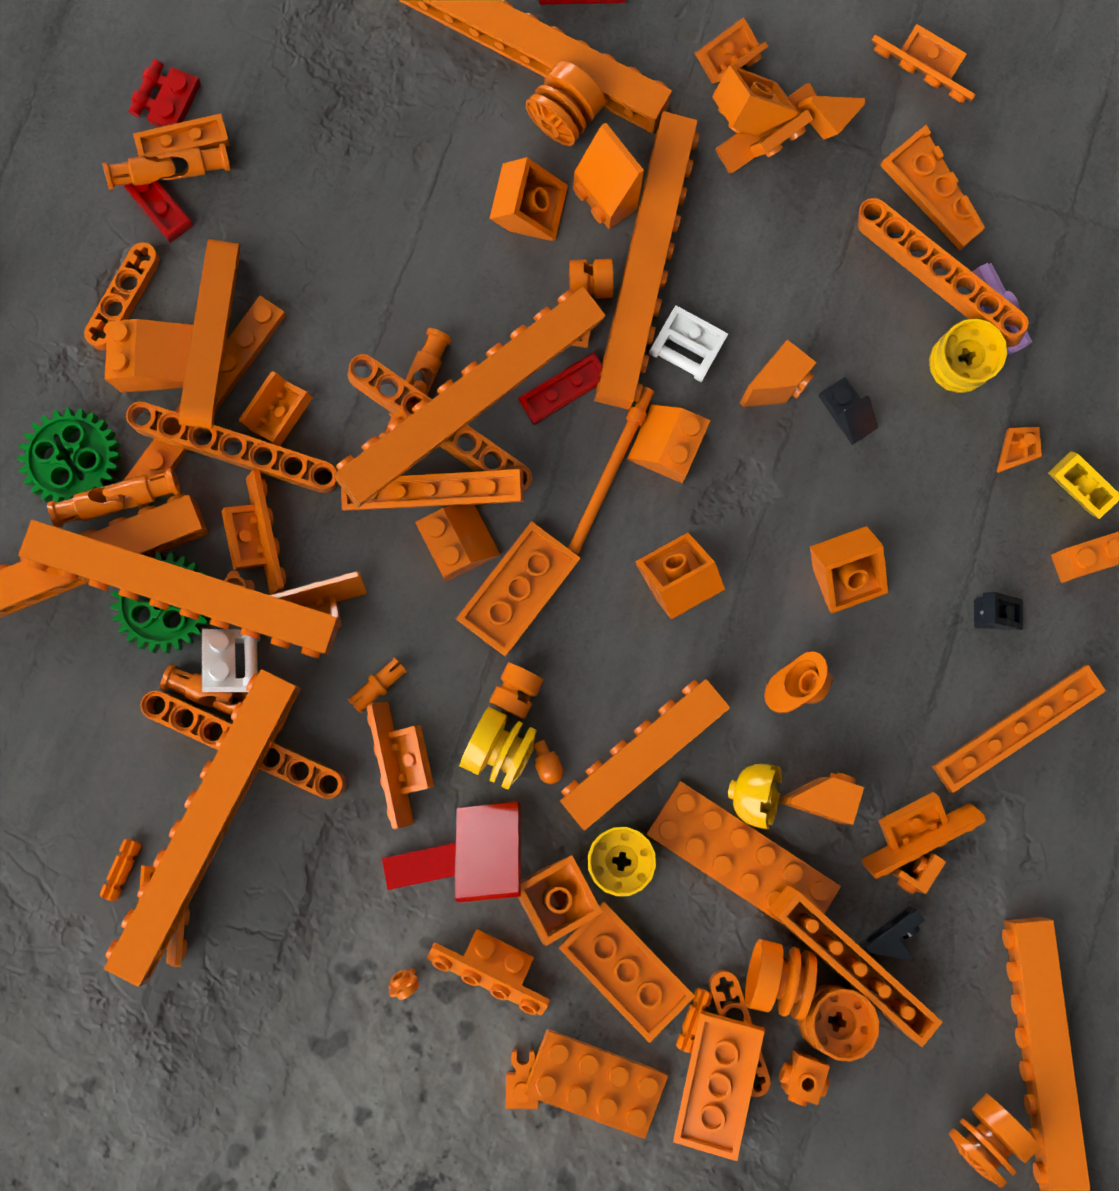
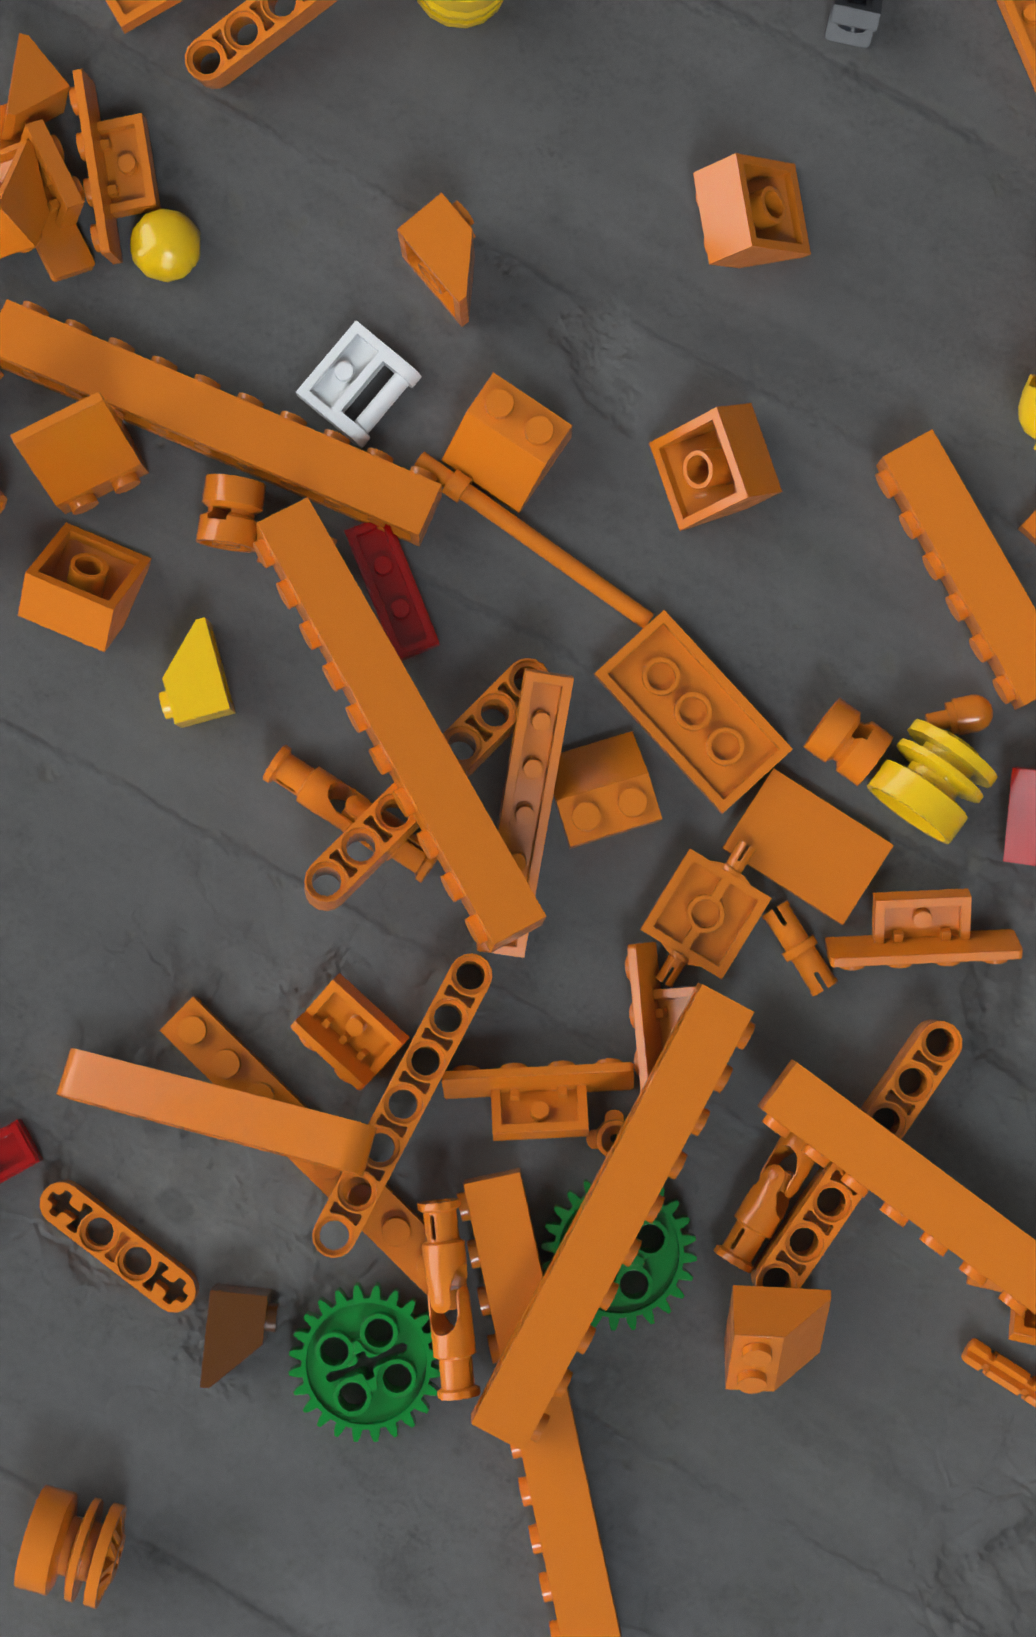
camera: 65 degrees left, 5 degrees up
(79, 372) = (235, 1328): none -> reddish brown slope
(119, 707) = (772, 1335): none -> orange slope
(146, 354) = (229, 1212): orange slope -> none
(219, 660) = (730, 1176): white plate -> none
(389, 619) = (705, 913): none -> orange plate
(444, 679) = (809, 846): none -> orange tile
(483, 278) = (196, 680): none -> yellow slope
(753, 212) = (165, 245): none -> yellow hair
(794, 172) = (117, 164): none -> orange bracket
(799, 683) = (911, 323): orange piece -> none
(850, 412) = (506, 163): black slope -> none

